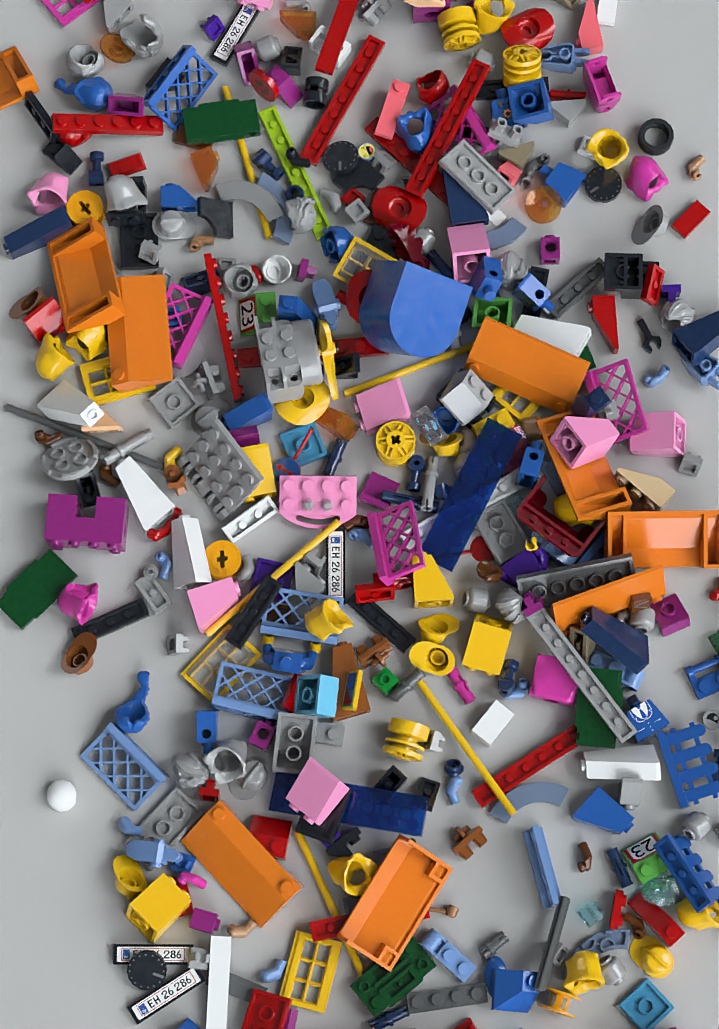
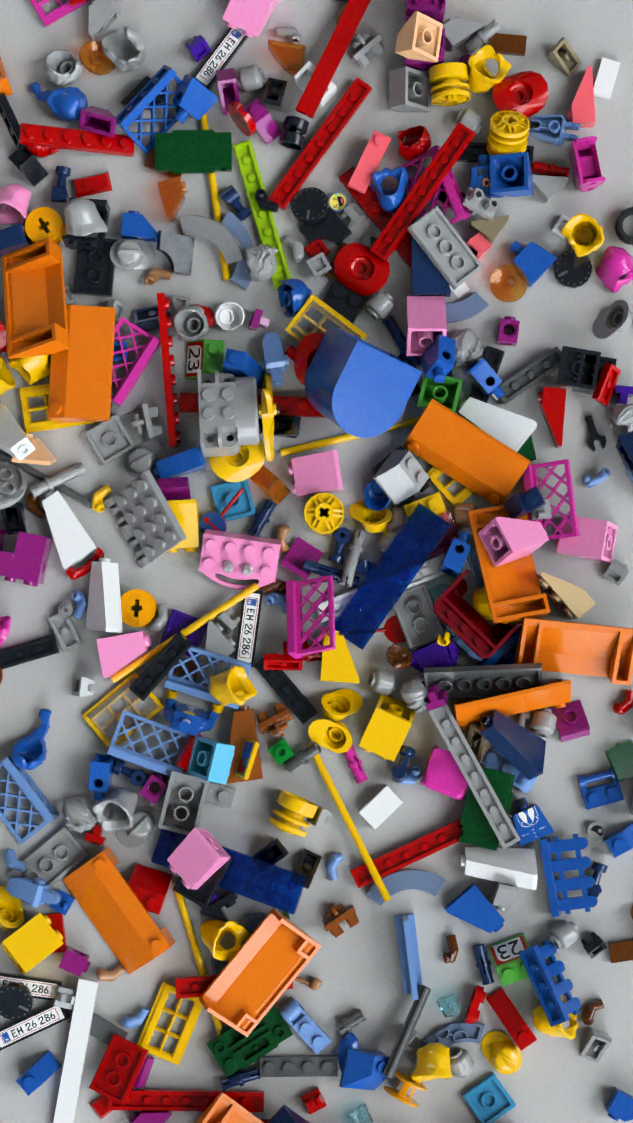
camera: 10 degrees right, 10 degrees up
(150, 251) = (104, 281): light grey tile -> none
(175, 479) = (100, 521): dark orange hips -> none
(192, 878) = (67, 919): dark pink arm -> none
(214, 73) = (192, 99): none -> blue torso
(243, 726) = (137, 777): none -> dark blue leg
(250, 519) = (169, 571): white slope -> none
(294, 188) = (254, 234): dark blue plate -> none
(355, 470) = (281, 534): none -> medium nougat arm
(407, 245) = (365, 311): dark red plant -> none
(421, 40) = (409, 90): none -> light grey slope
(429, 426) = (360, 501): clear slope -> none
(453, 767) = (336, 845): dark blue plate -> none
(534, 166) = (504, 240): dark grey arm -> none
(636, 924) = (492, 1021): reddish brown arm -> none
(640, 602) = (543, 709): reddish brown tile -> none
(662, 891) = (520, 996): clear light blue hair -> none

